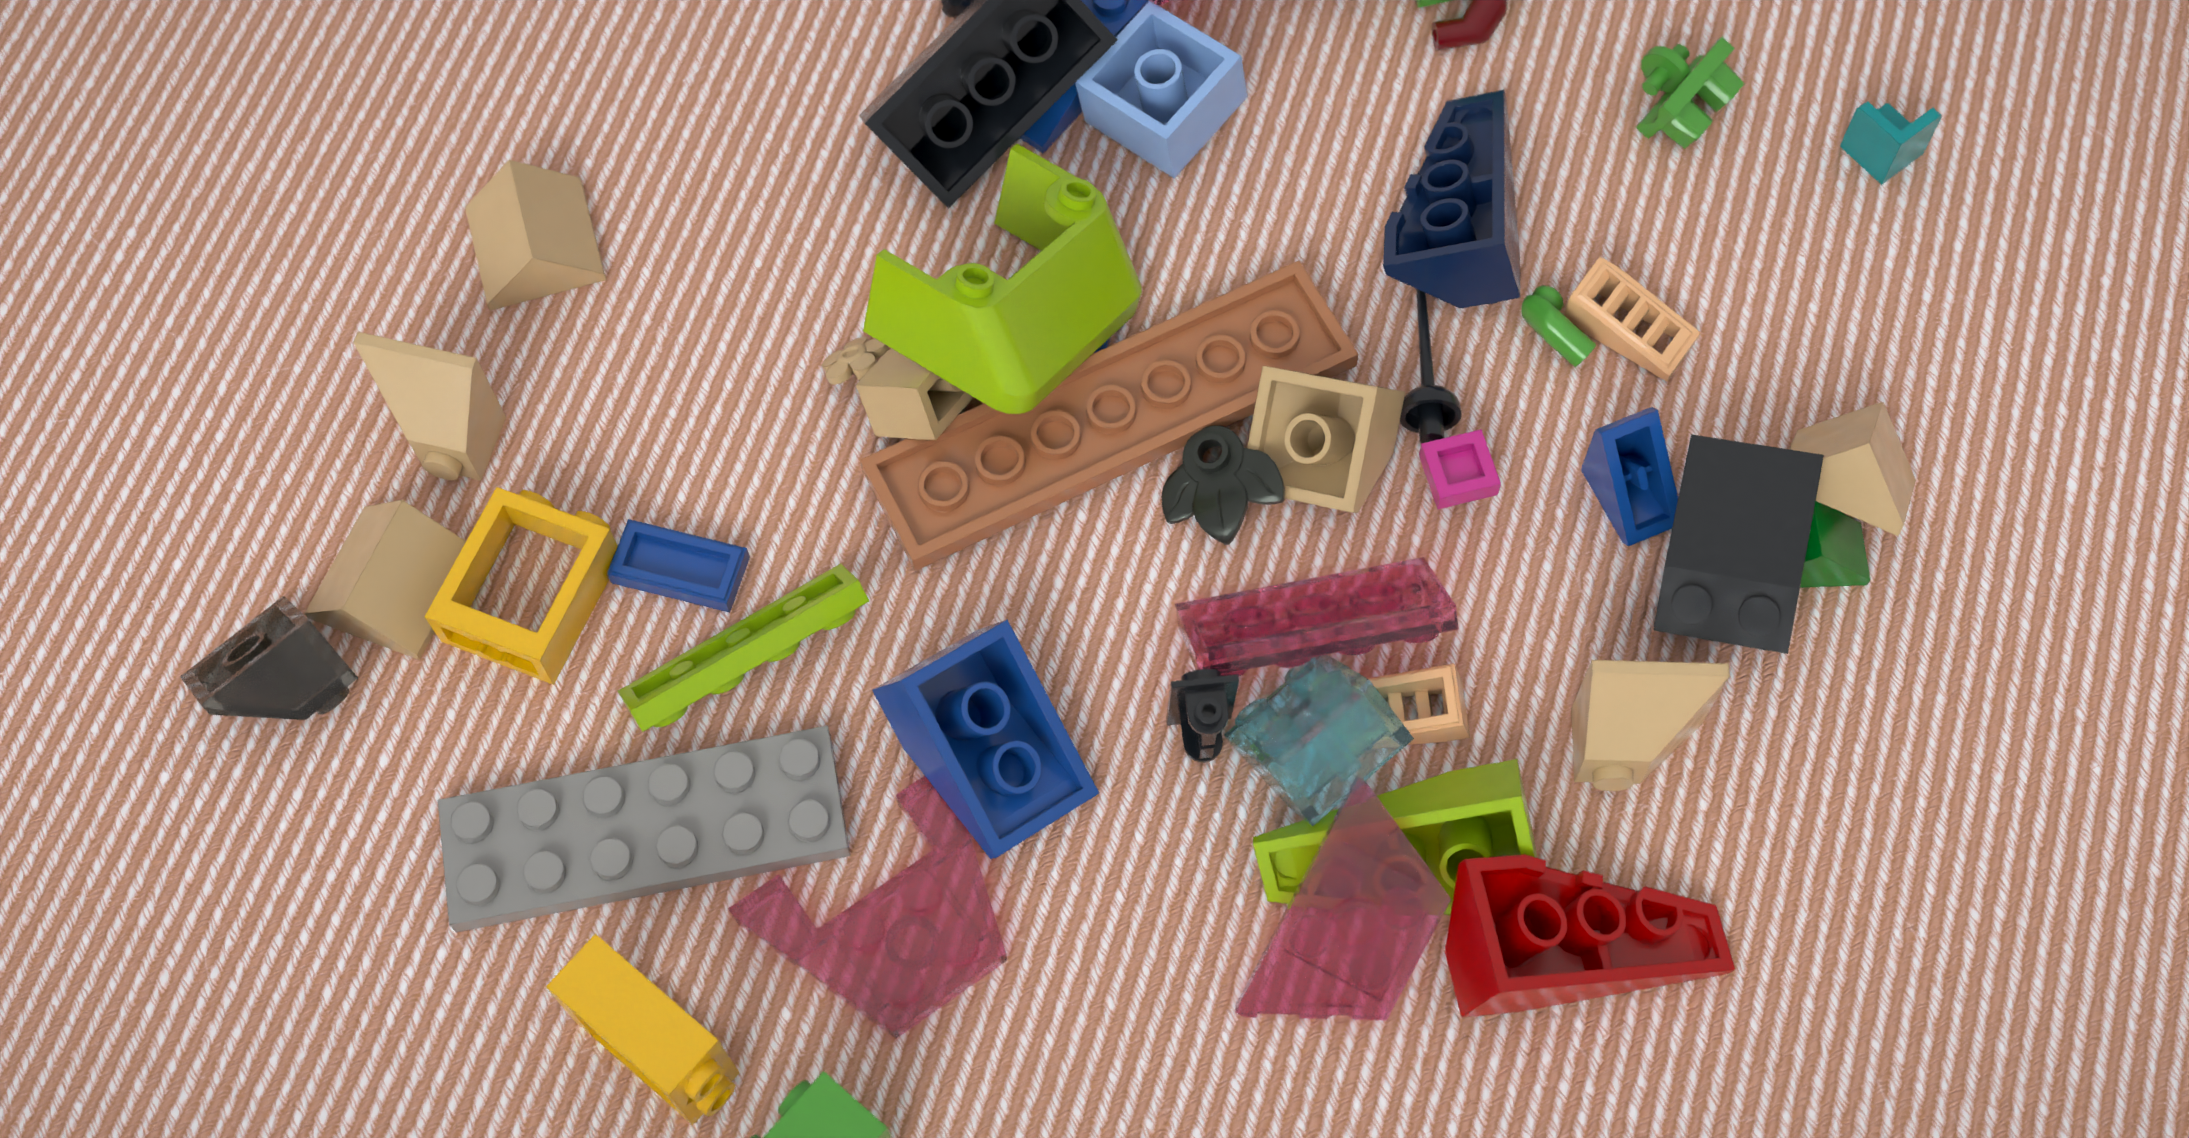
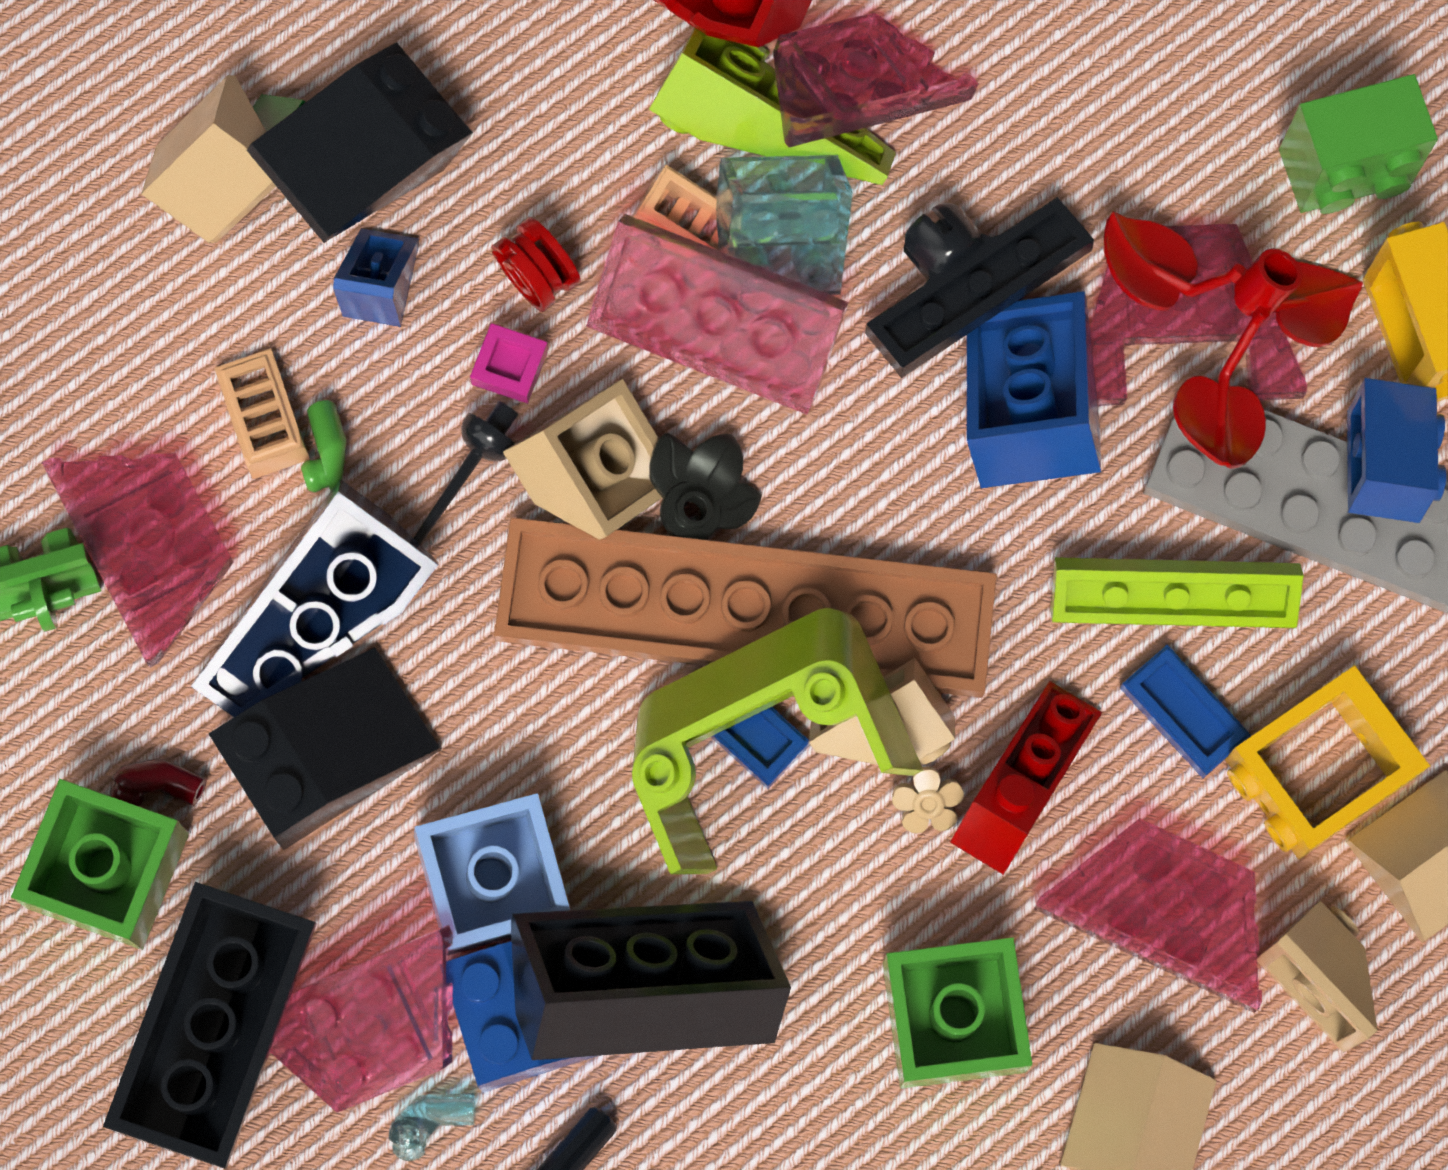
camera: 150 degrees left, 10 degrees up
(601, 396) = (1168, 908): none -> clear pink wing
(603, 871) = (1394, 450): none -> blue brick
(725, 206) = (957, 1013): none -> bright green brick
(774, 994) = (1309, 303): none -> red plant
(781, 426) = (1025, 777): none -> red slope
(1109, 805) = (971, 277): none -> black plate
(1202, 707) = (858, 282): black hinge -> none
(1367, 109) = (324, 745): none -> black slope
(1505, 566) = (536, 264): none -> red wheel
(1637, 171) = (145, 540): none -> clear pink wing
(1637, 716) = (534, 82): tan slope -> none

